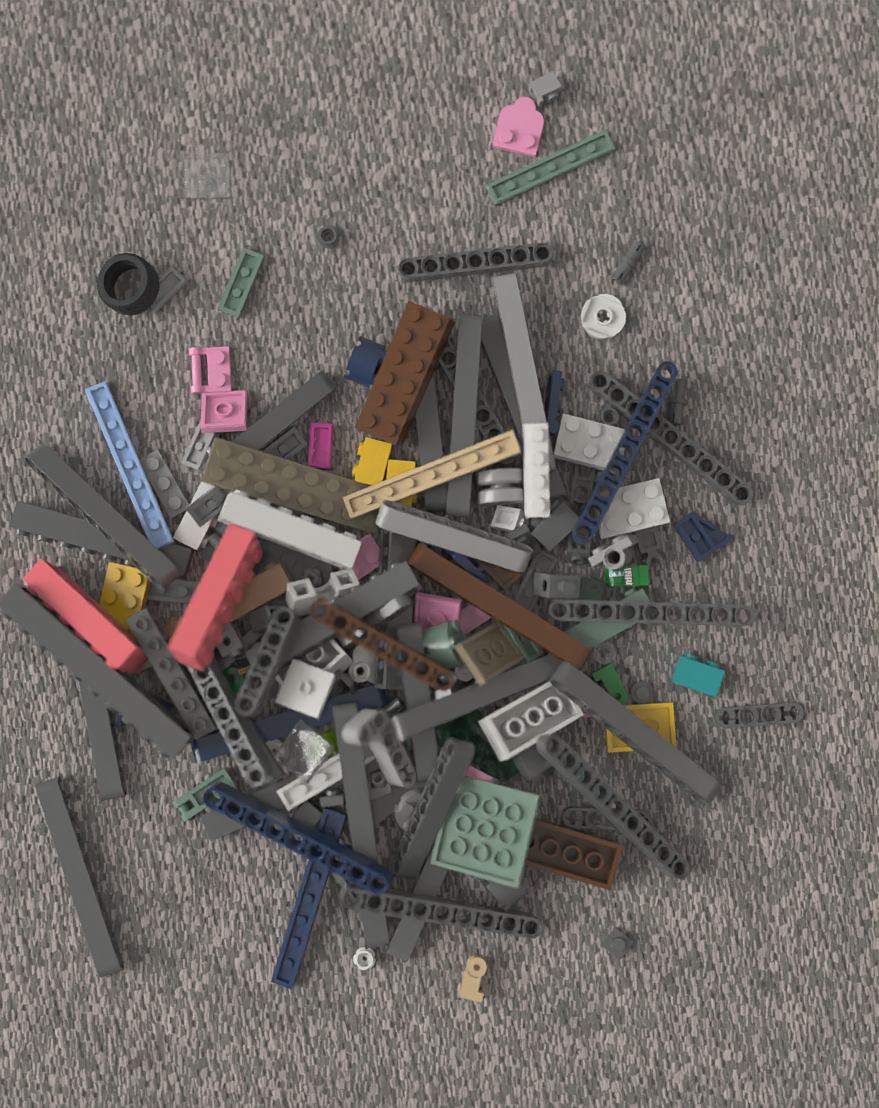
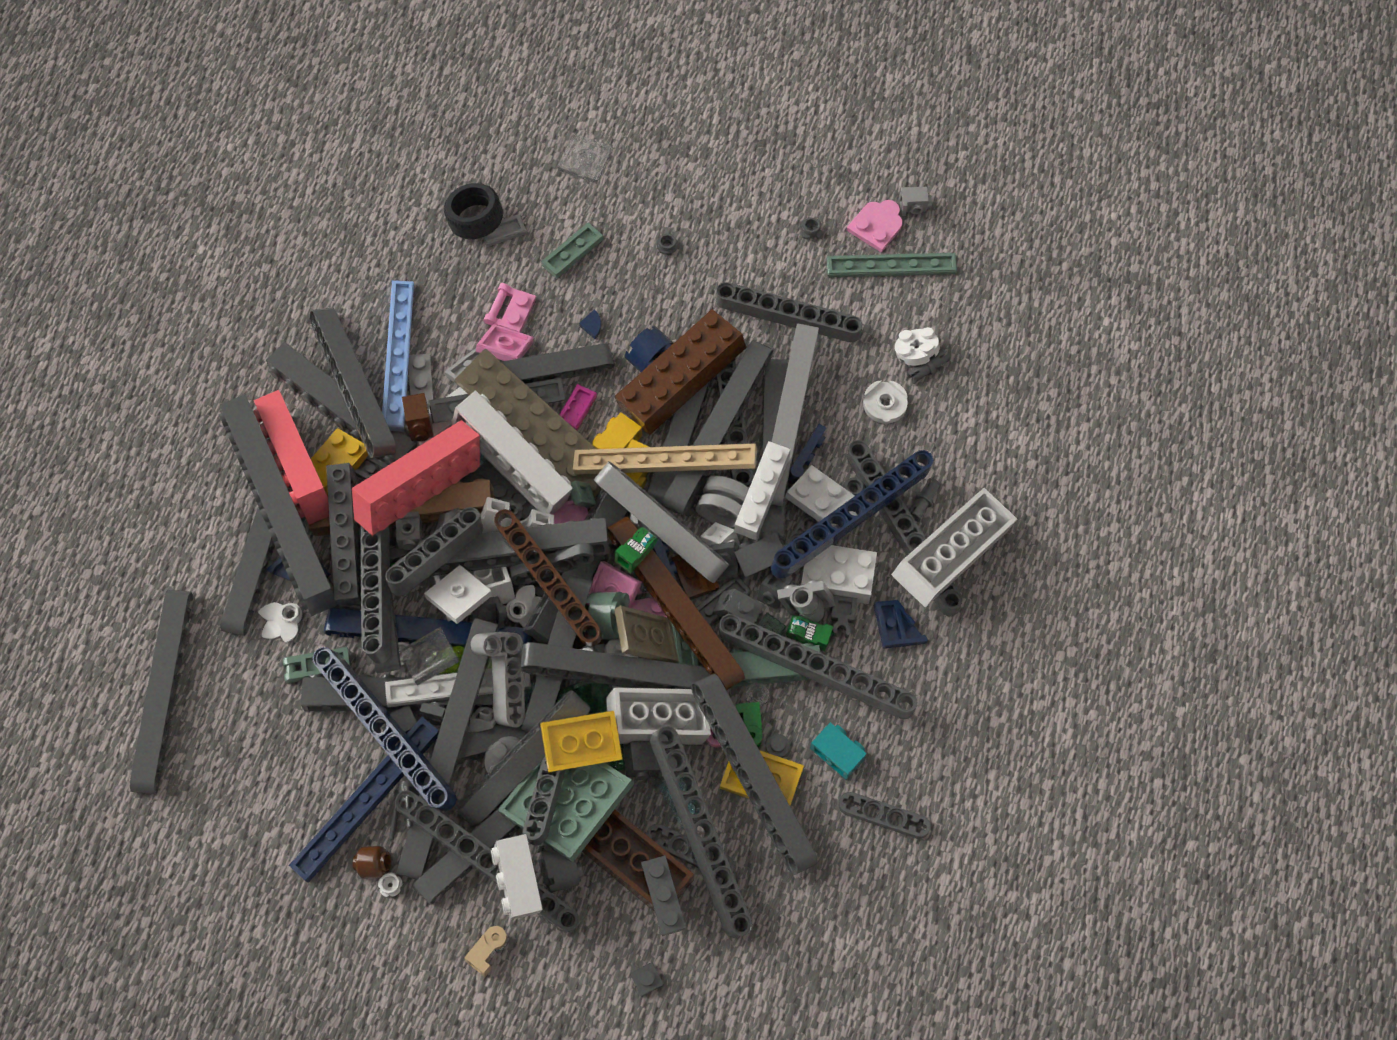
camera: 20 degrees right, 20 degrees down
(150, 770) = (278, 623): none -> white plate
(184, 531) = (417, 417): none -> reddish brown brick
(295, 352) = (591, 324): none -> dark blue tile
(340, 948) = (372, 862): none -> reddish brown head
(368, 536) = (582, 494): none -> sand green plate
(446, 577) = (635, 549): none -> green leg
(458, 154) = (811, 223): none -> dark grey plate
(466, 841) = (540, 798): none -> dark grey beam
(478, 924) = (516, 877): none -> white brick
(480, 781) = (581, 741): none -> yellow plate
(602, 239) = (924, 338): none -> white plate
(606, 877) = (663, 895): none -> dark grey plate
(728, 445) = (954, 547): none -> white brick

